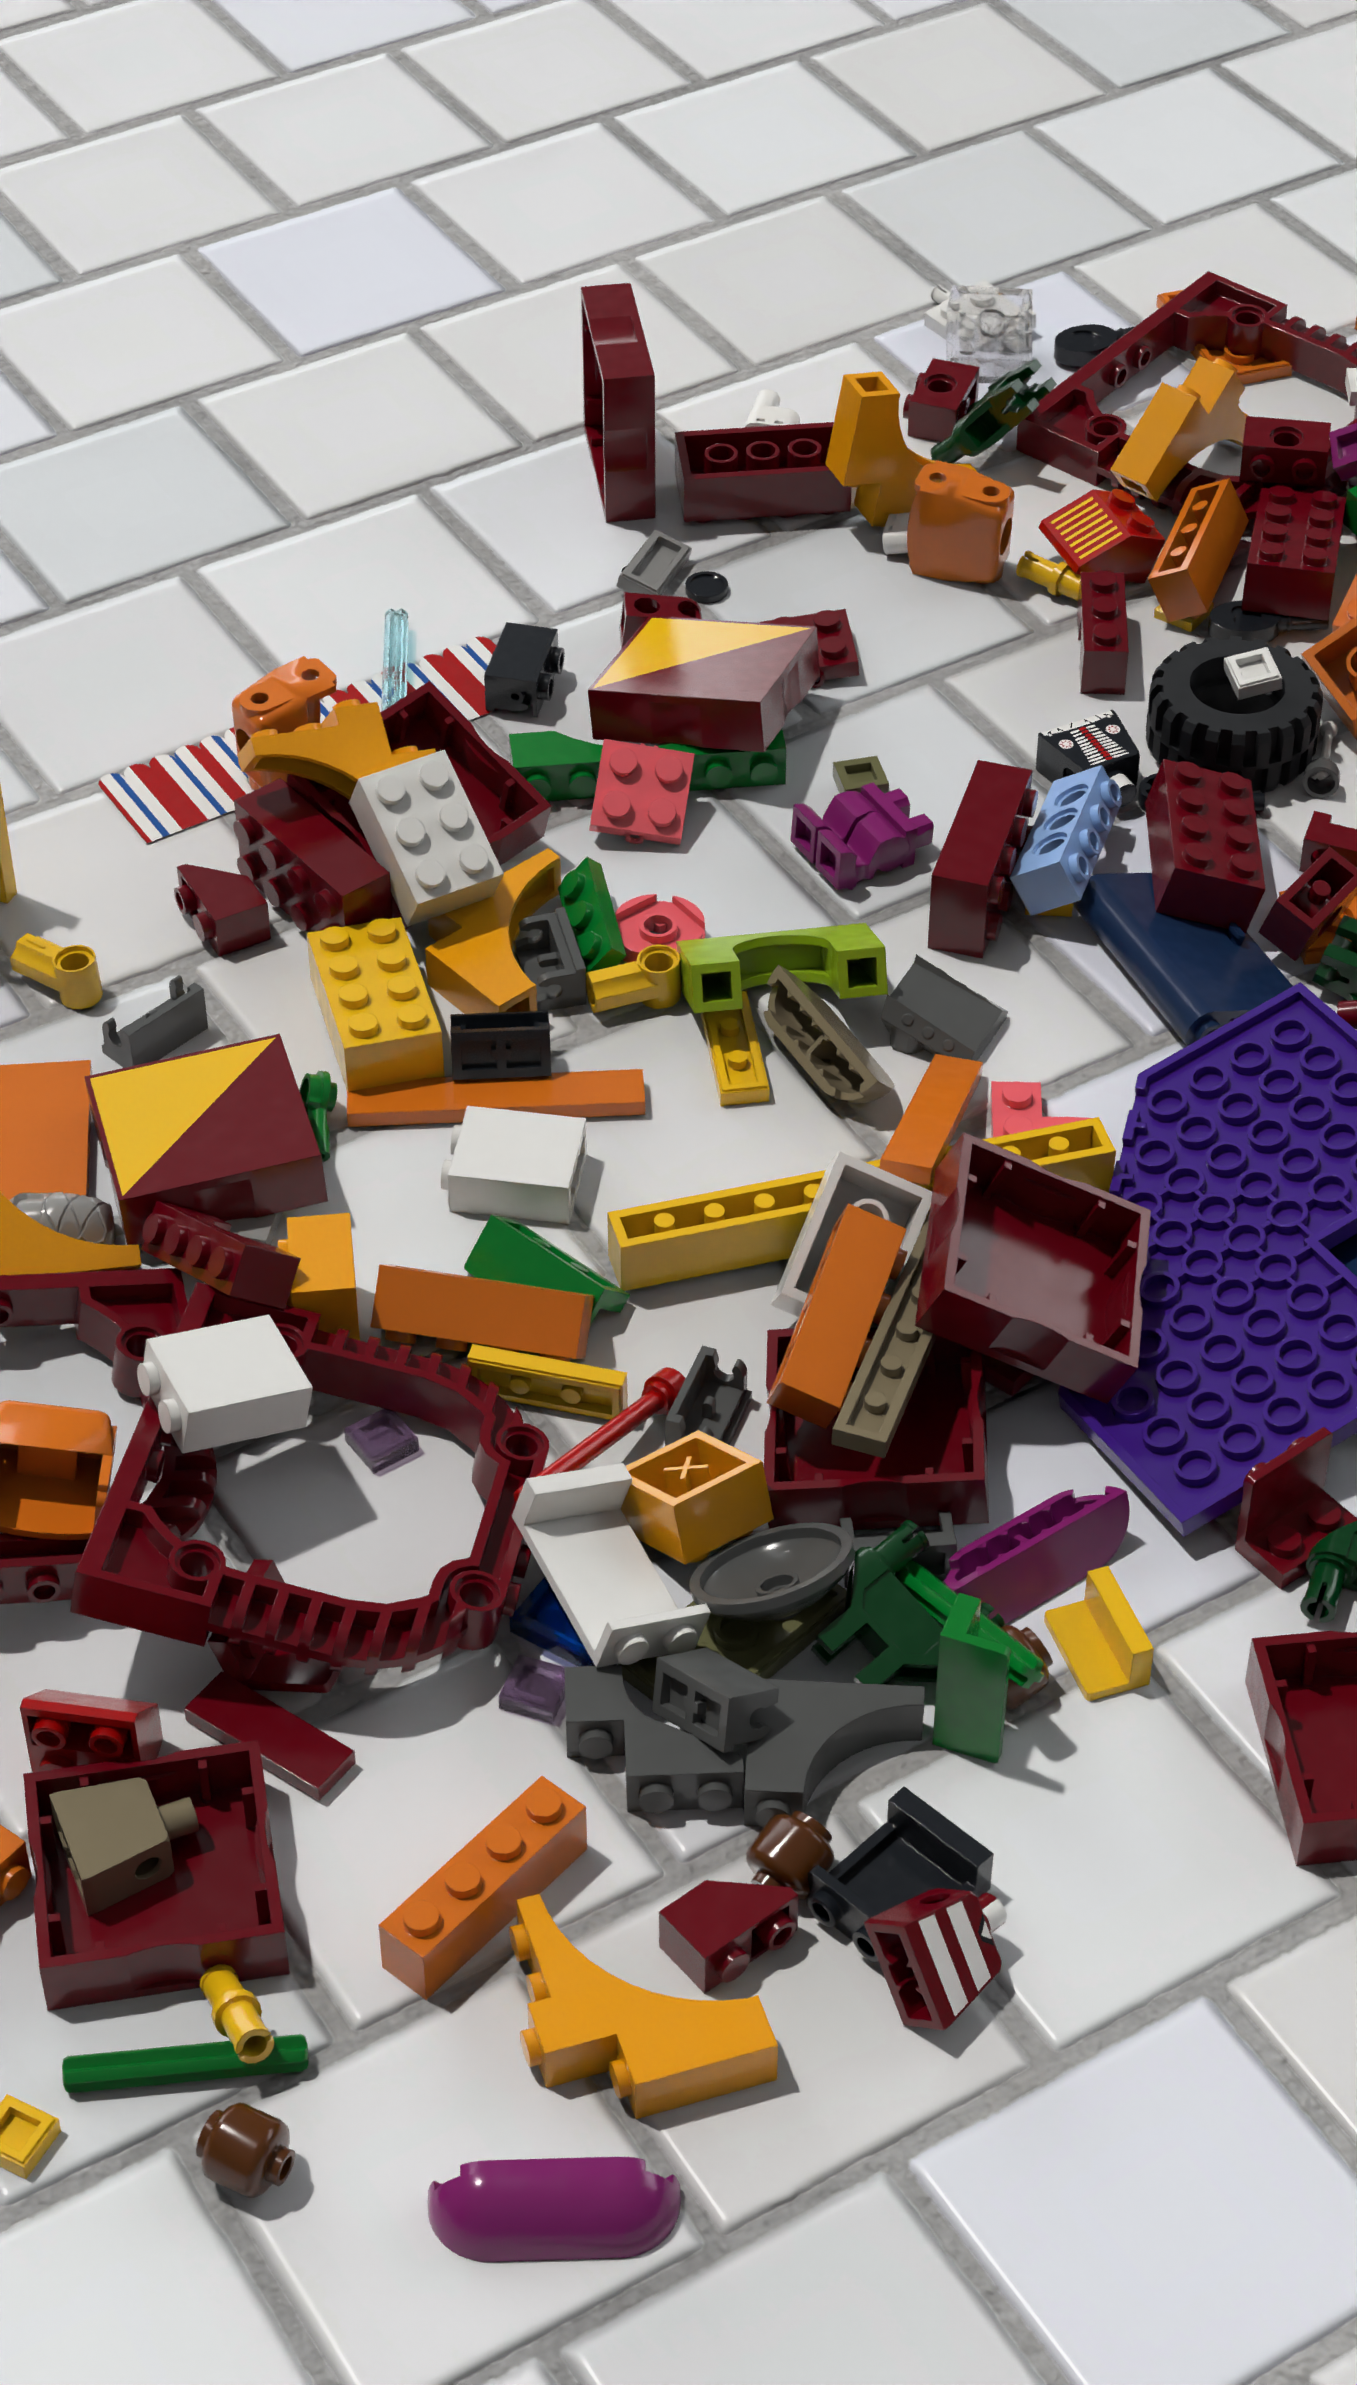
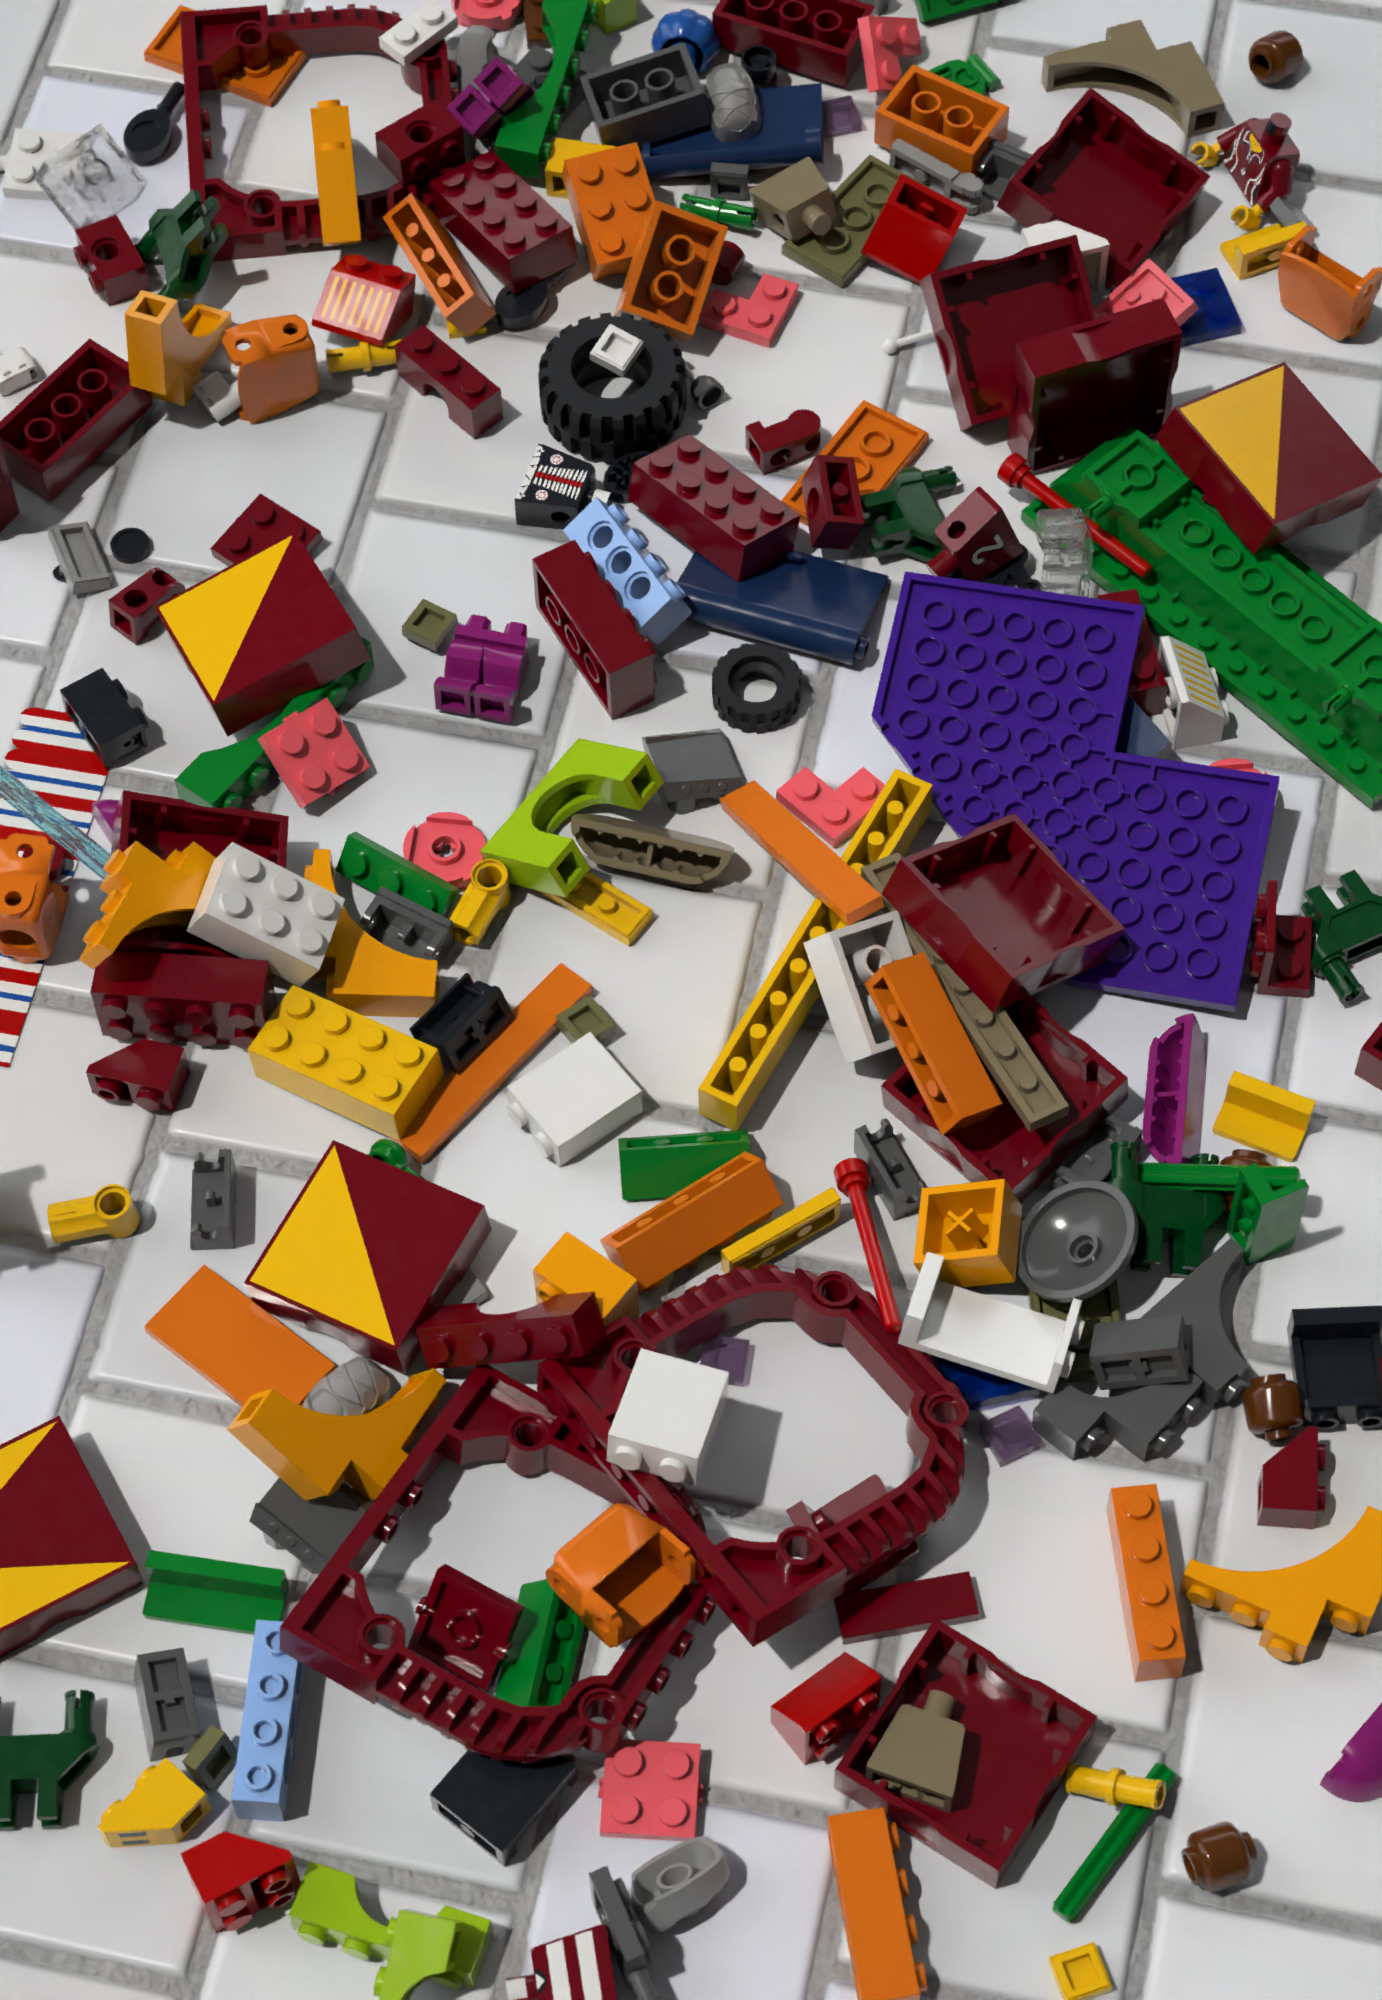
camera: 45 degrees left, 15 degrees up
(604, 1121) = (584, 1018): none -> olive plate
(1075, 1027) = (751, 660): none -> black tyre

